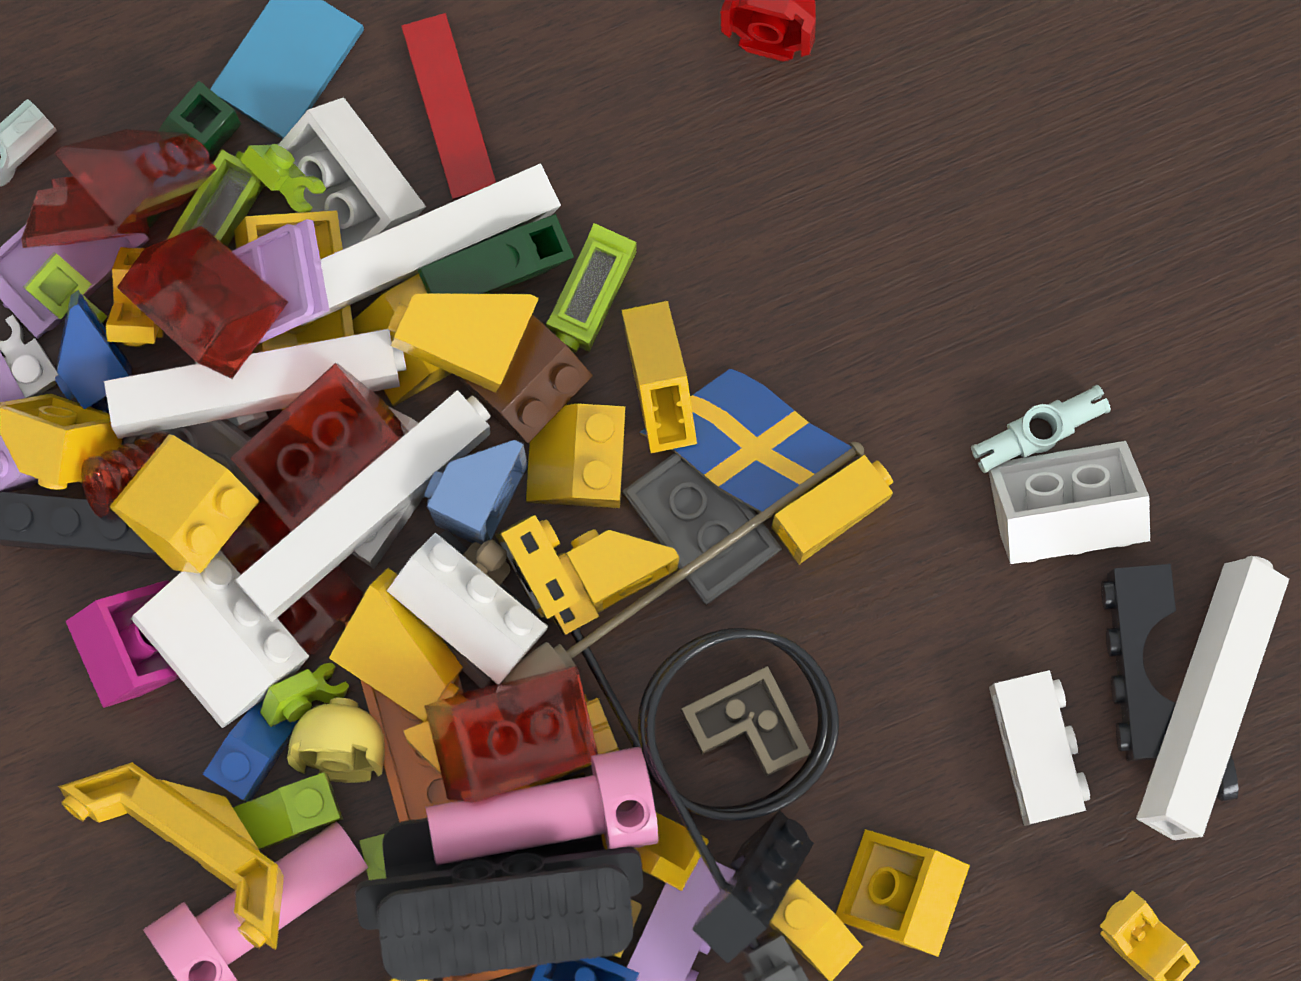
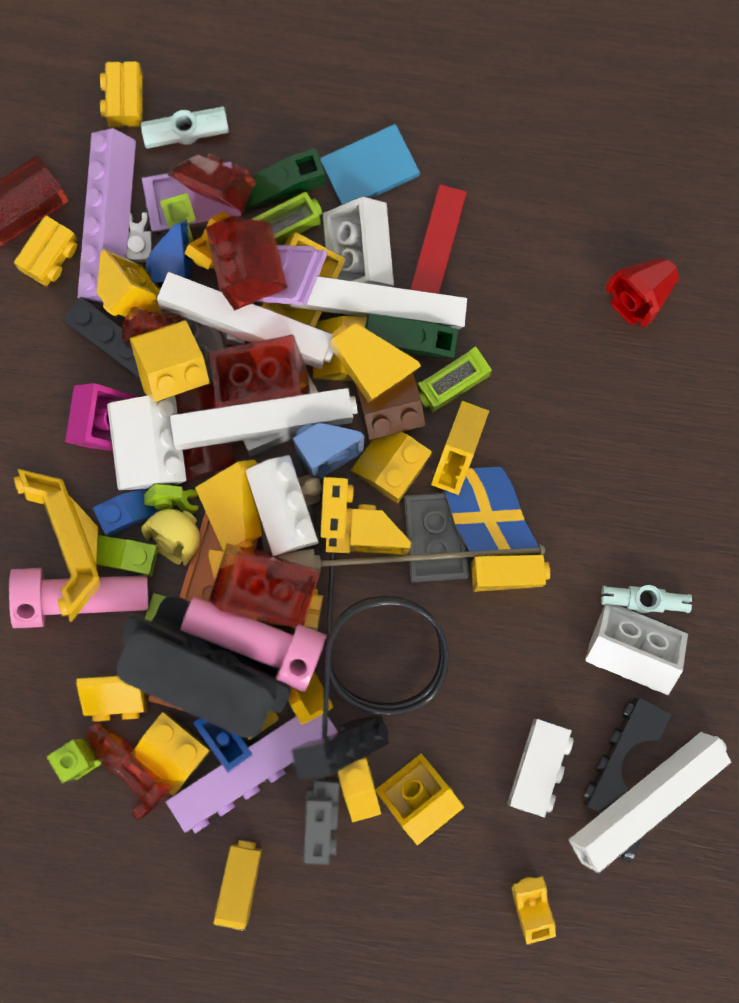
camera: 30 degrees right, 0 degrees up
(138, 171) = (253, 174): clear red slope -> none
(278, 172) = (328, 219): lime plate -> none
(749, 709) = (401, 654): dark tan brick -> none

